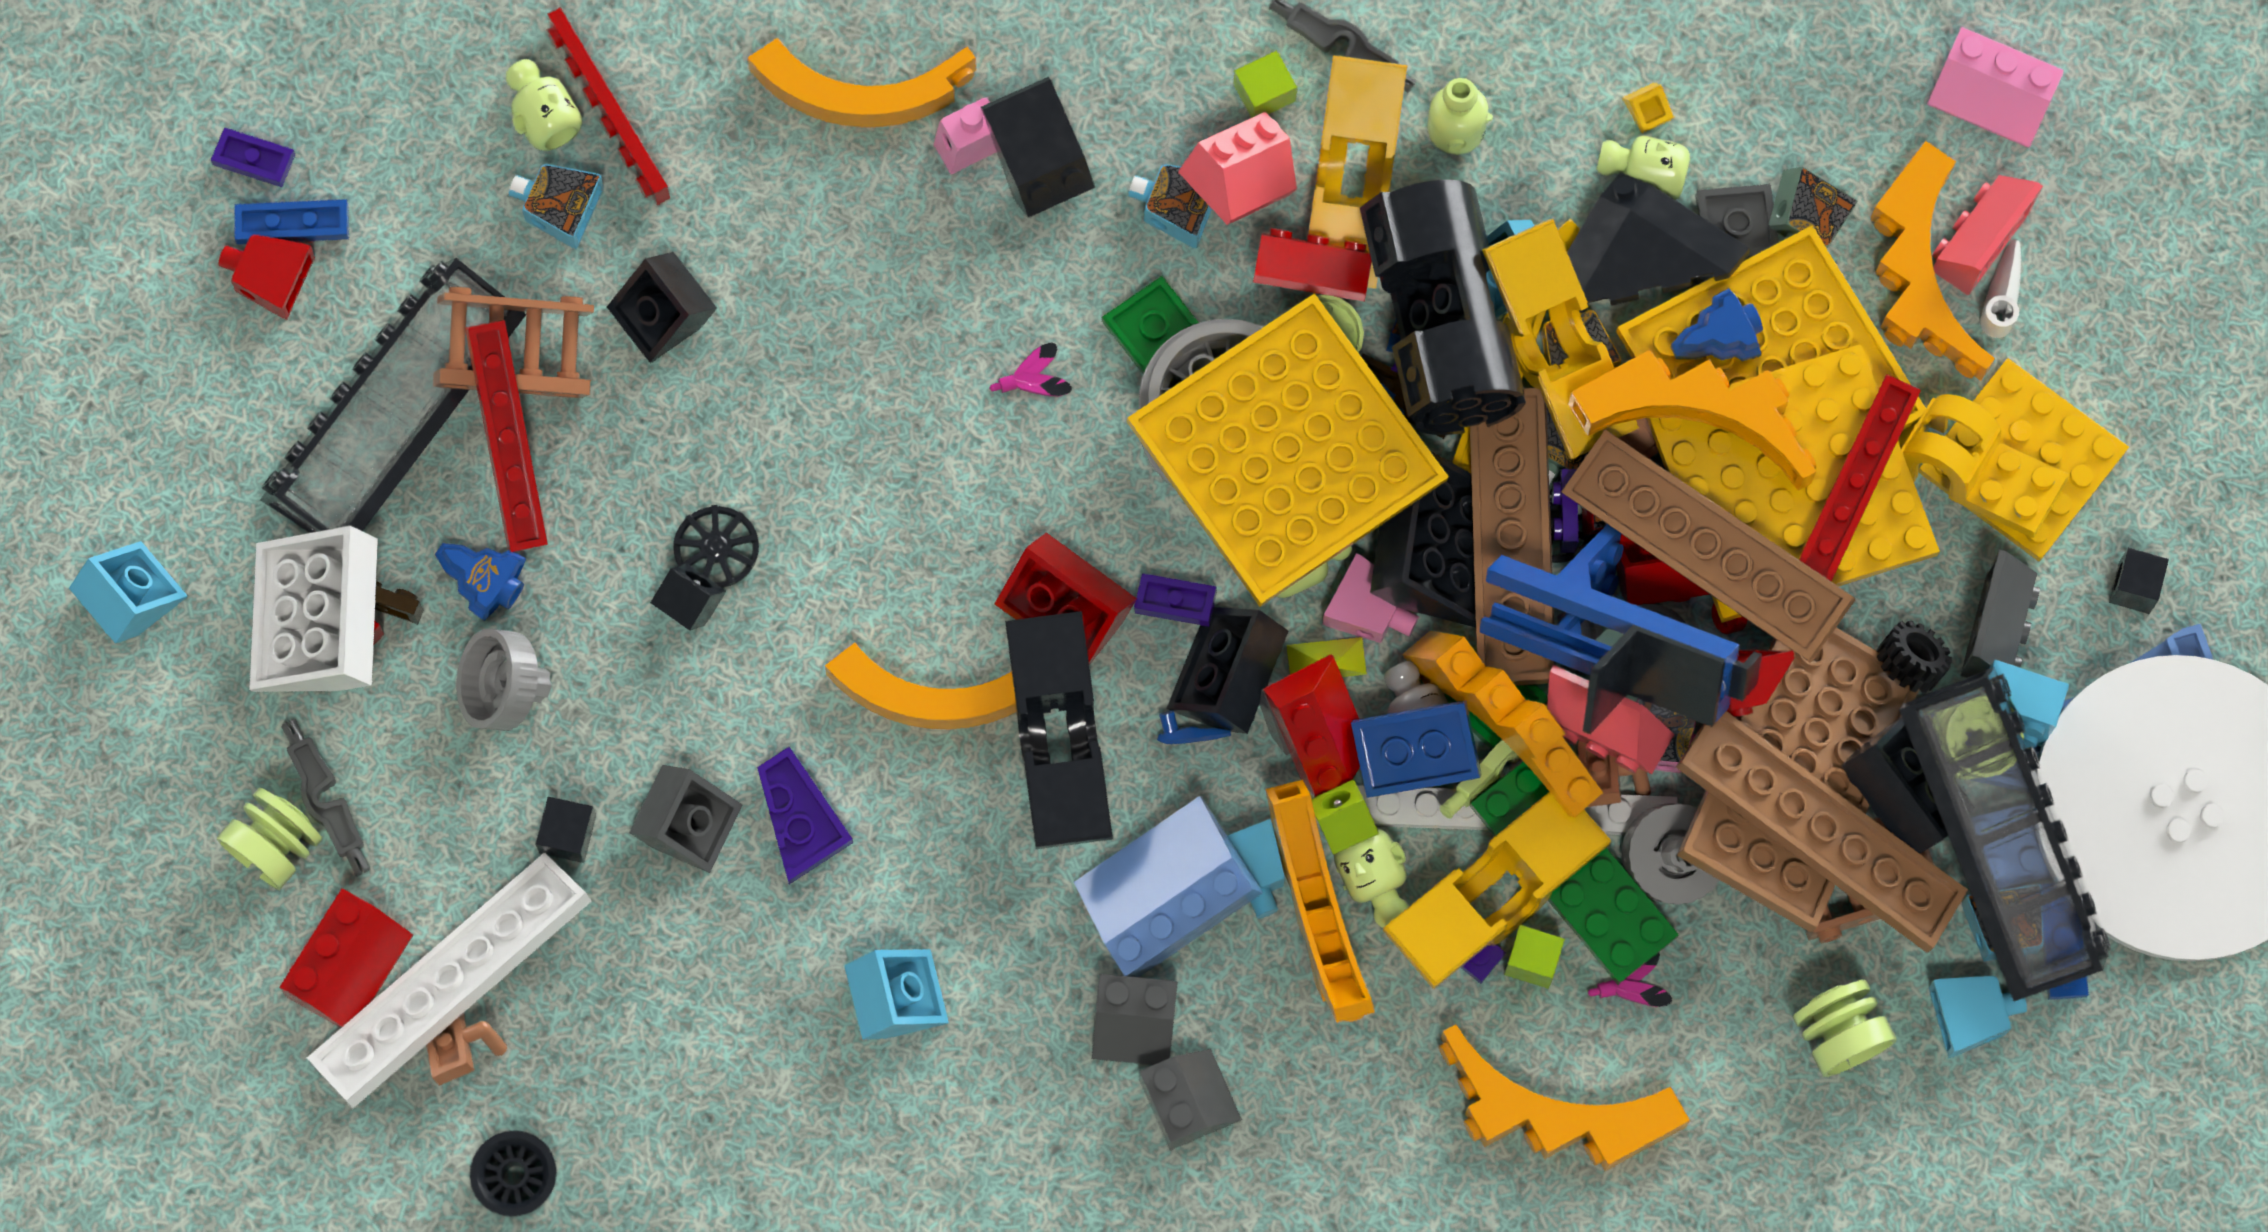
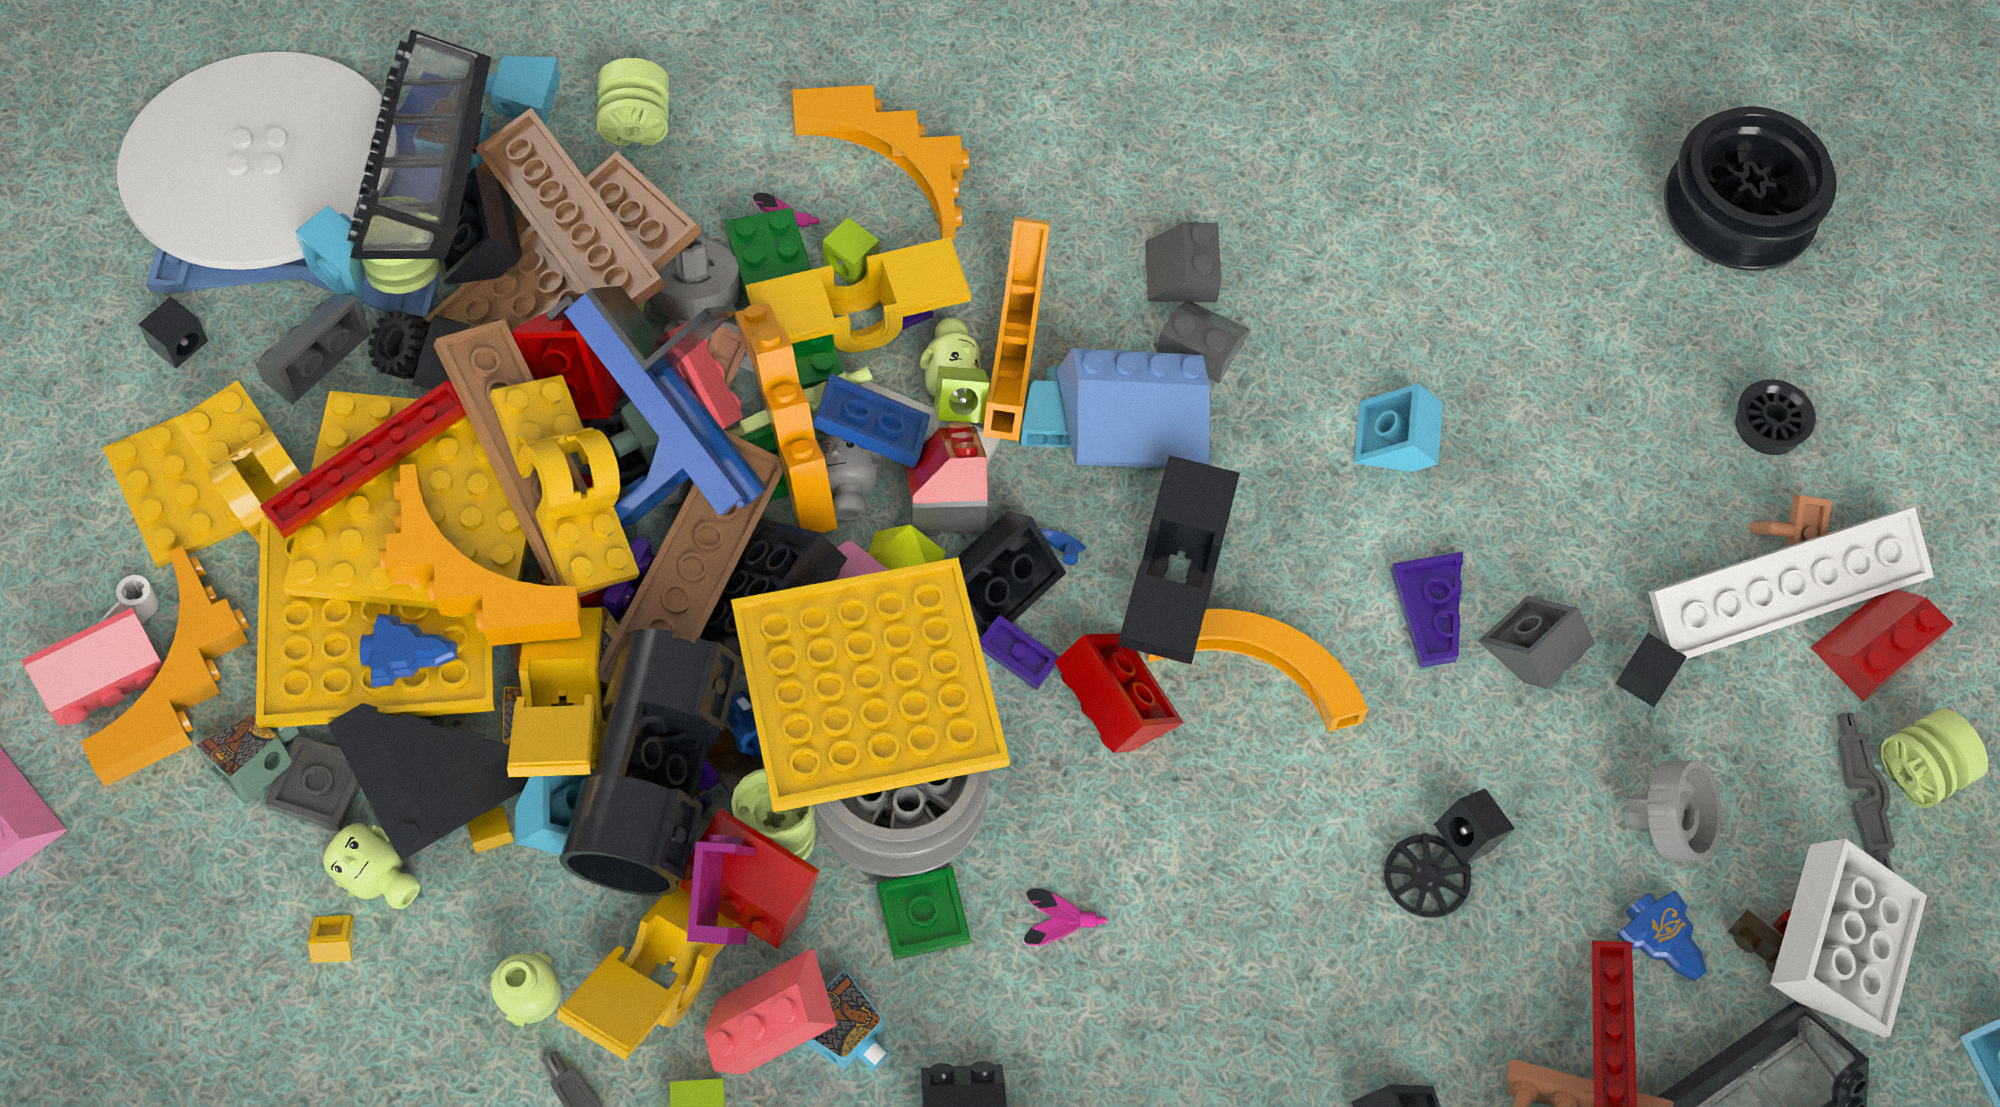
camera: 160 degrees left, 10 degrees down
(1321, 194) = (706, 891): none -> magenta panel
(1704, 563) = (577, 527): none -> yellow piece
(1864, 647) = (430, 369): none -> black slope

